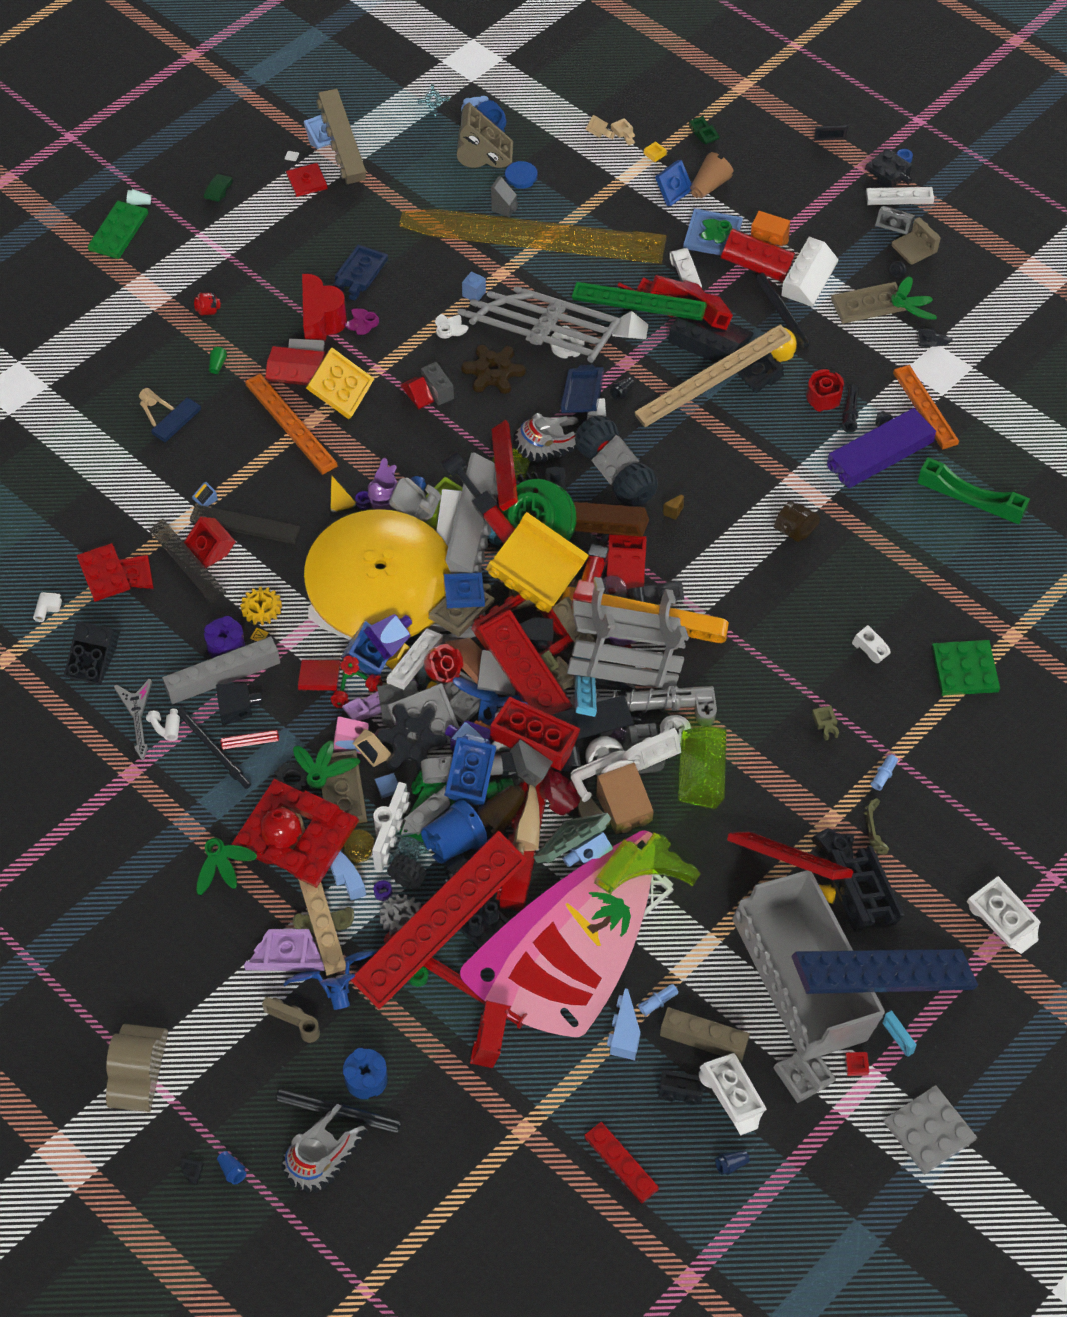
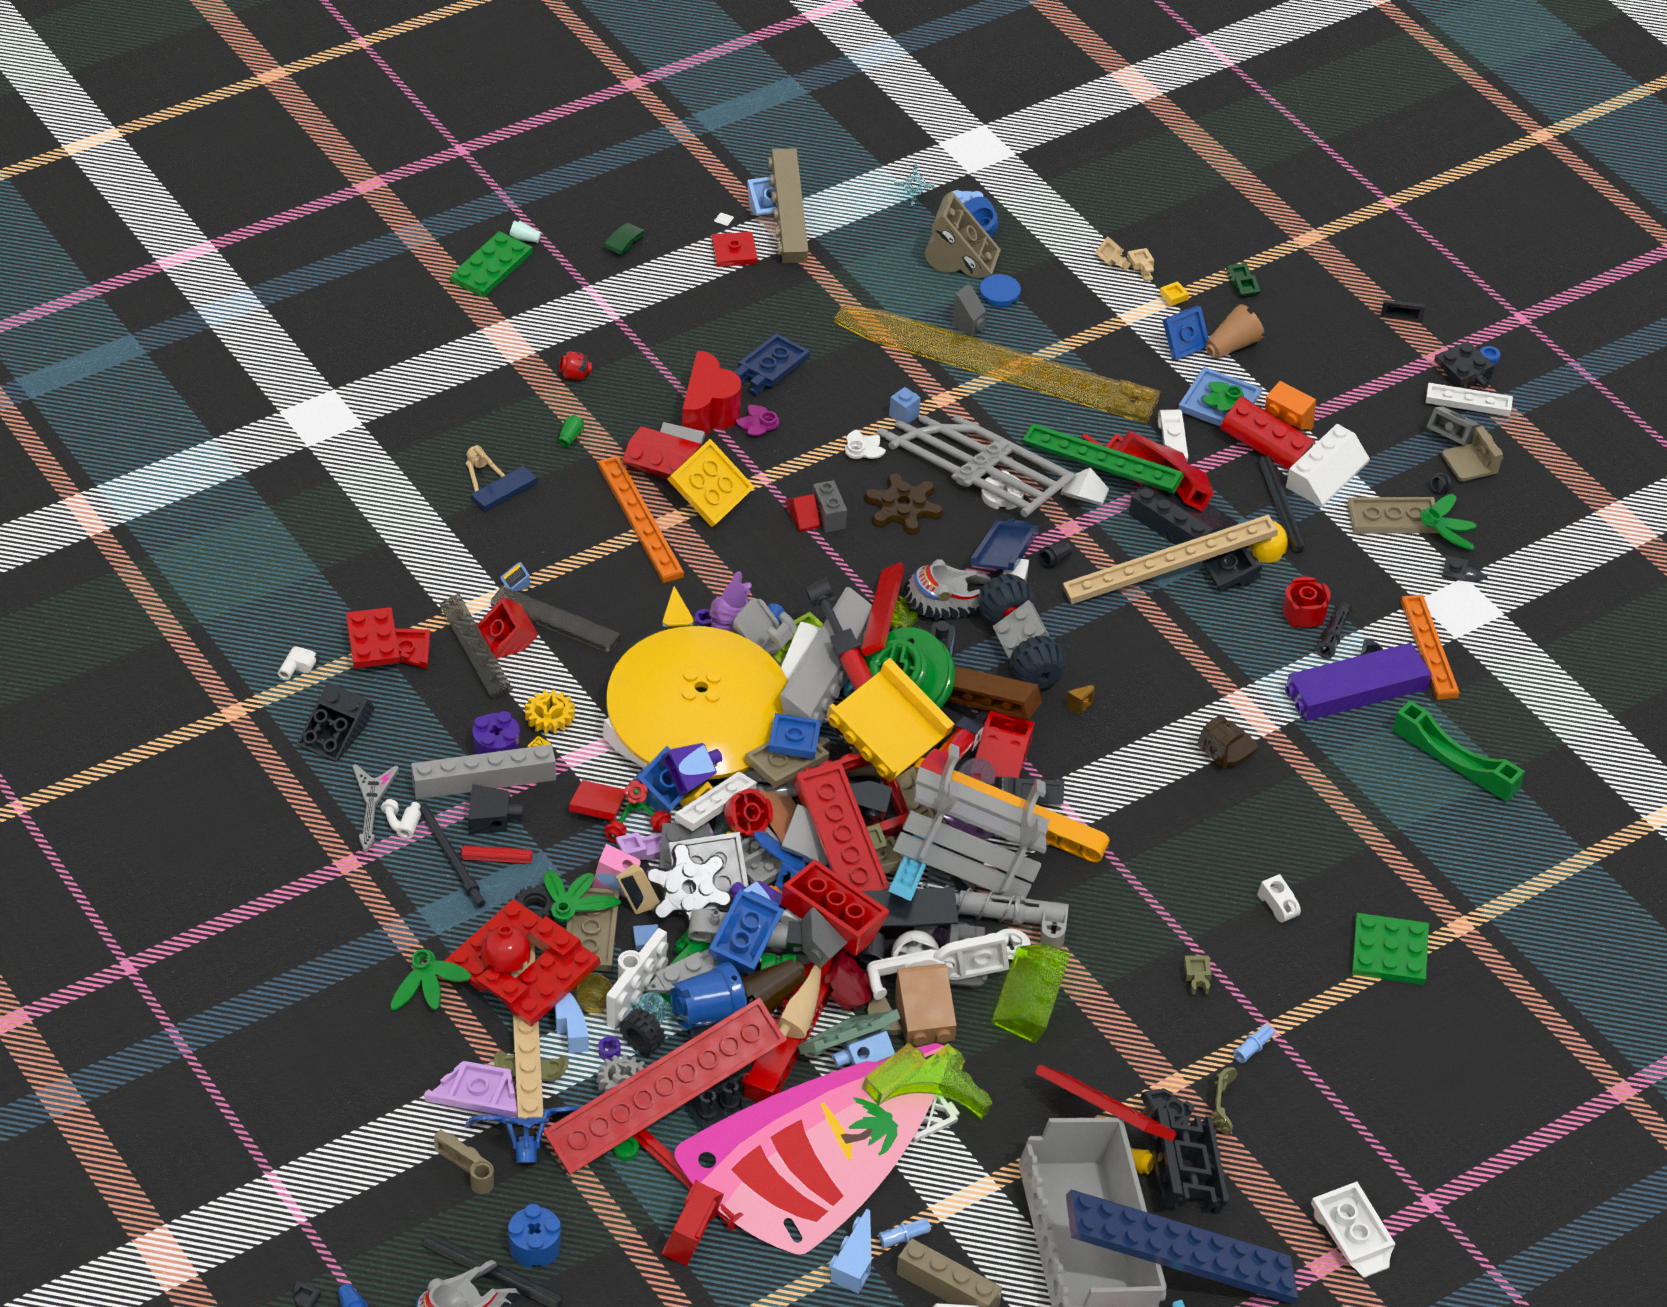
camera: 10 degrees right, 10 degrees down
(134, 1066) = (268, 1173): dark tan brick -> none

